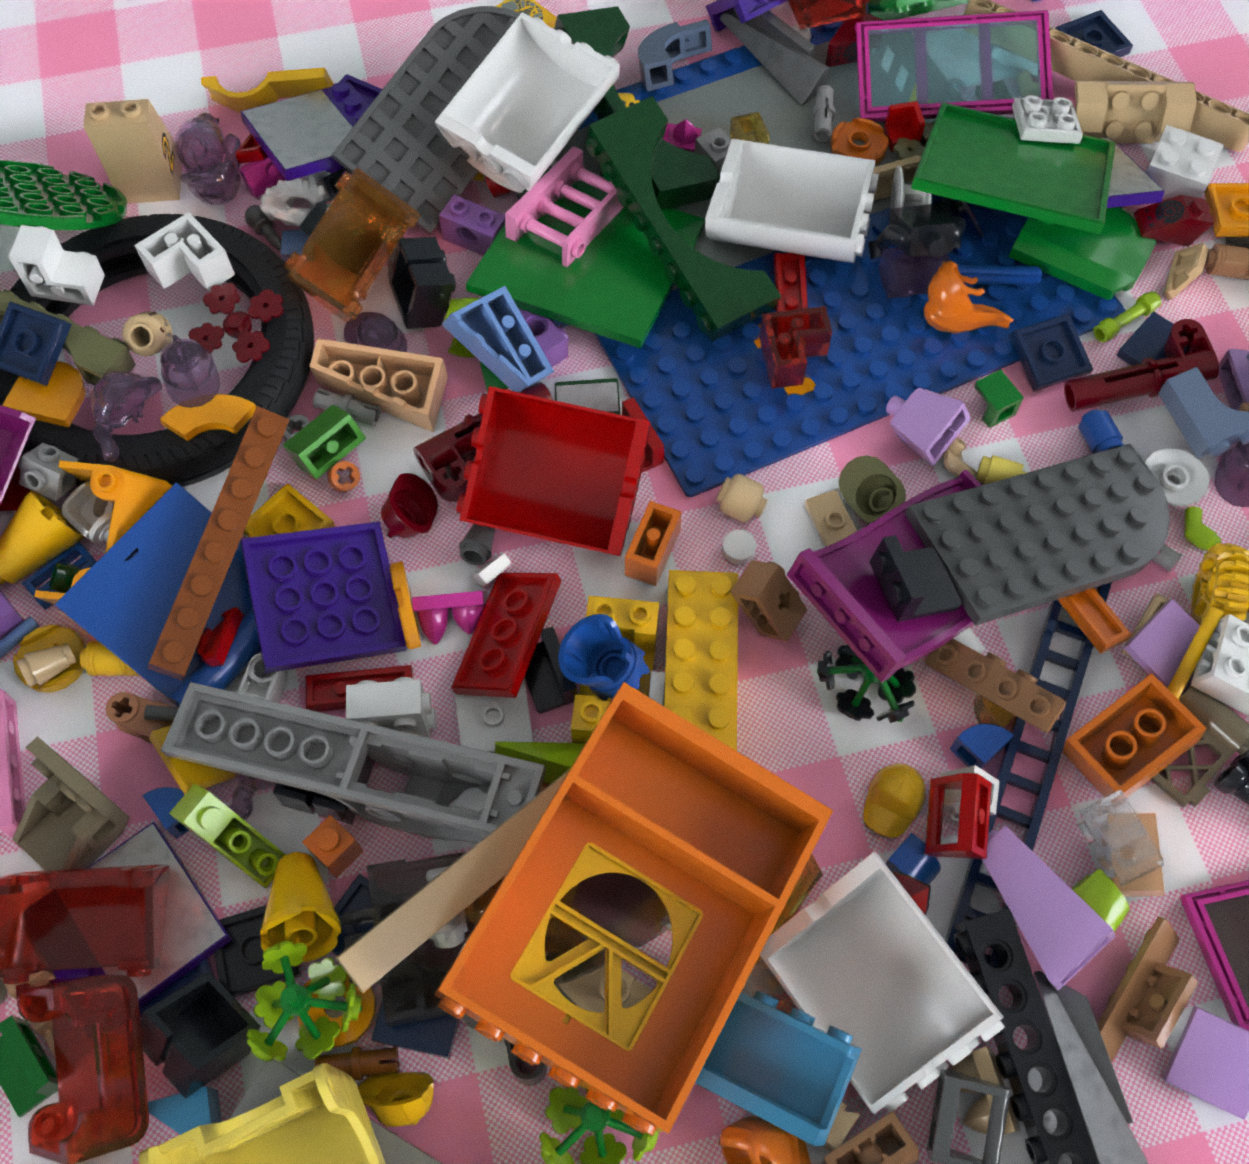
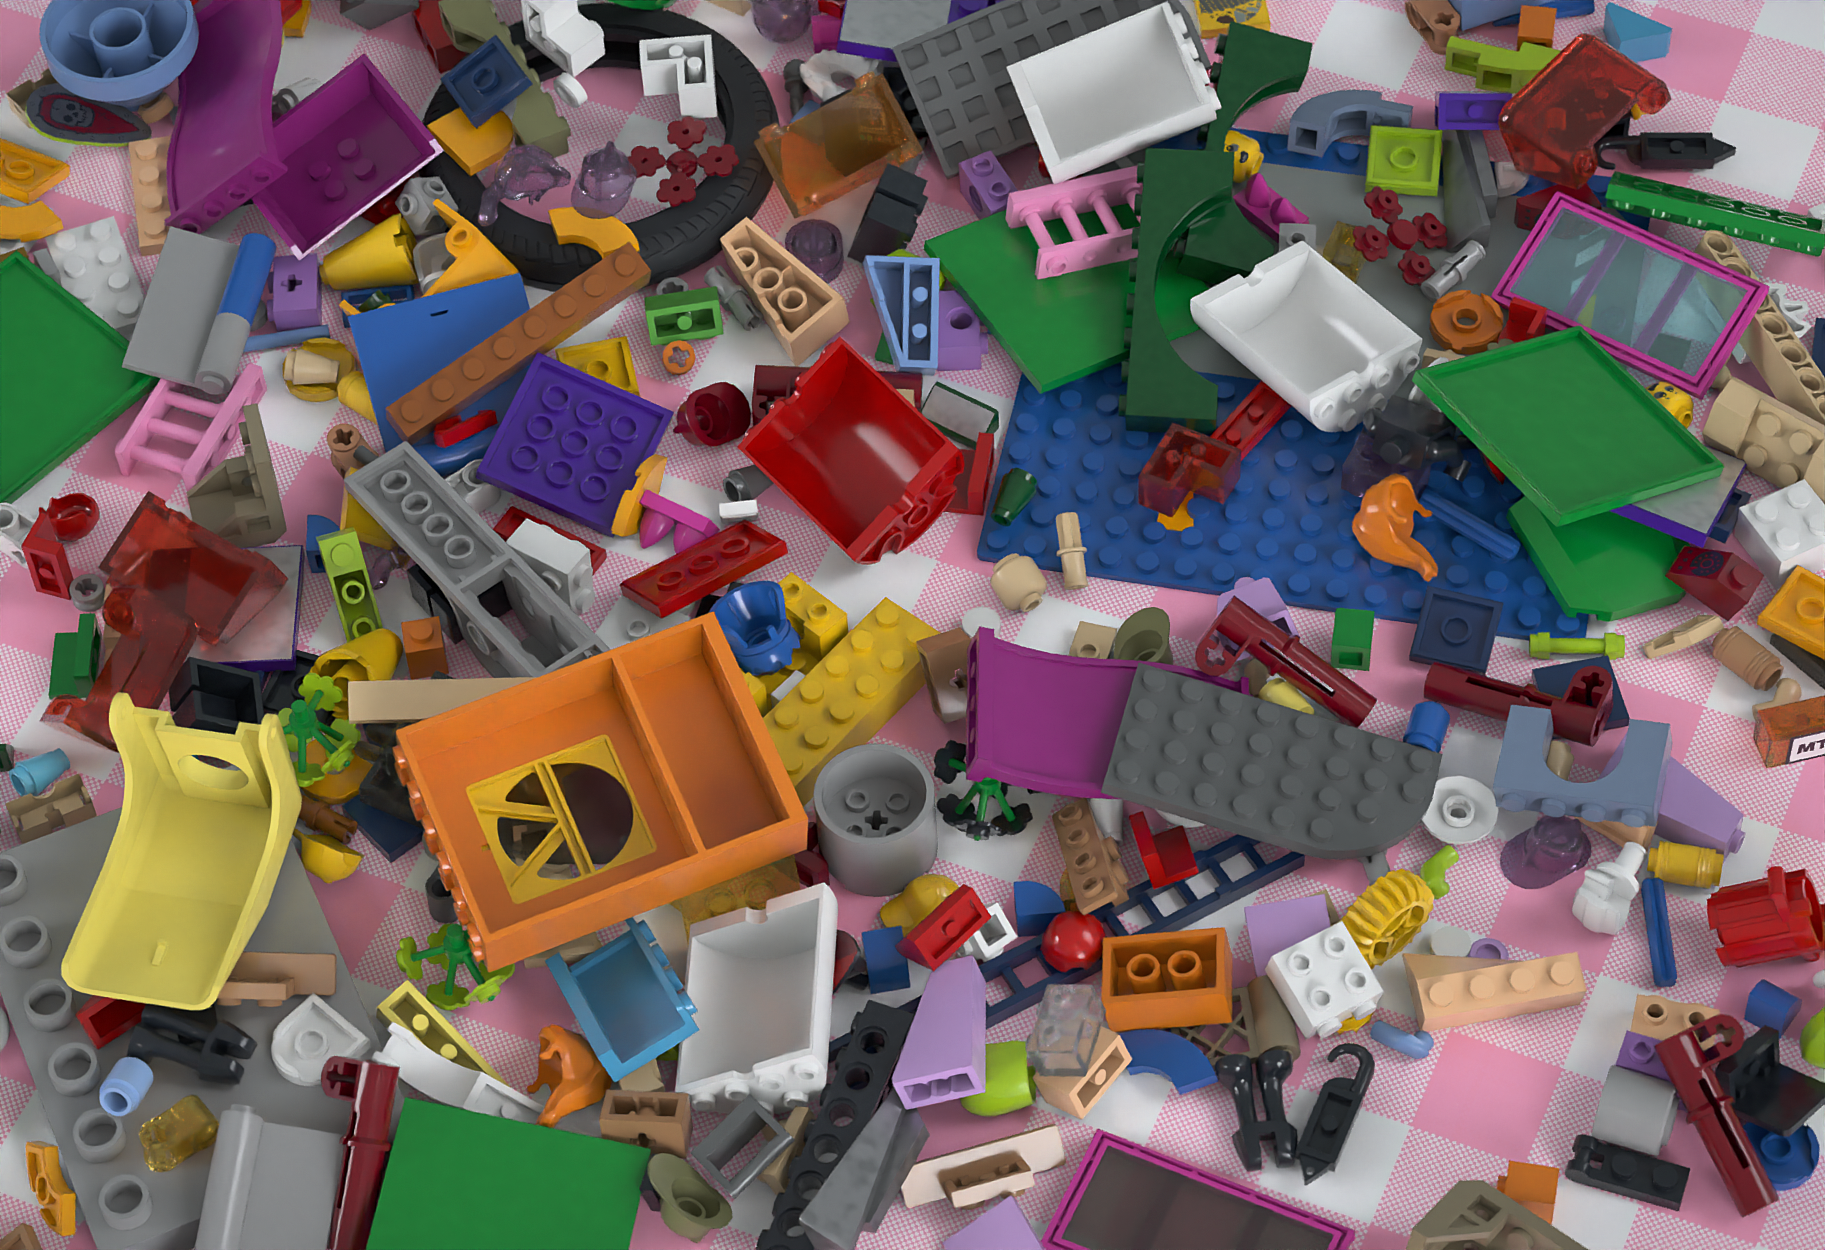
camera: 40 degrees right, 10 degrees down
(101, 315) = (569, 90): none -> white tile
(147, 333) = (593, 127): tan head -> none
(652, 543) = (897, 569): orange brick -> none
(685, 435) = (1013, 495): none -> dark green cone
(726, 60) = (1404, 160): none -> lime tile
(760, 451) = (1071, 551): none -> tan axle
(777, 103) = (1401, 234): none -> dark red plant
(832, 730) = (876, 818): none -> light grey brick
(913, 580) = (1072, 719): black bracket -> none
(956, 437) = (1248, 628): none -> dark red piece
(1030, 640) = (1165, 854): none -> red panel
(1038, 756) = (1073, 941): none -> red hair
(1047, 120) = (1666, 401): white tile -> none
(1096, 619) = (1242, 871): orange tile -> none
(1179, 799) = (1170, 1057): none -> blue tile
(1195, 651) = (1257, 966): yellow bar -> none

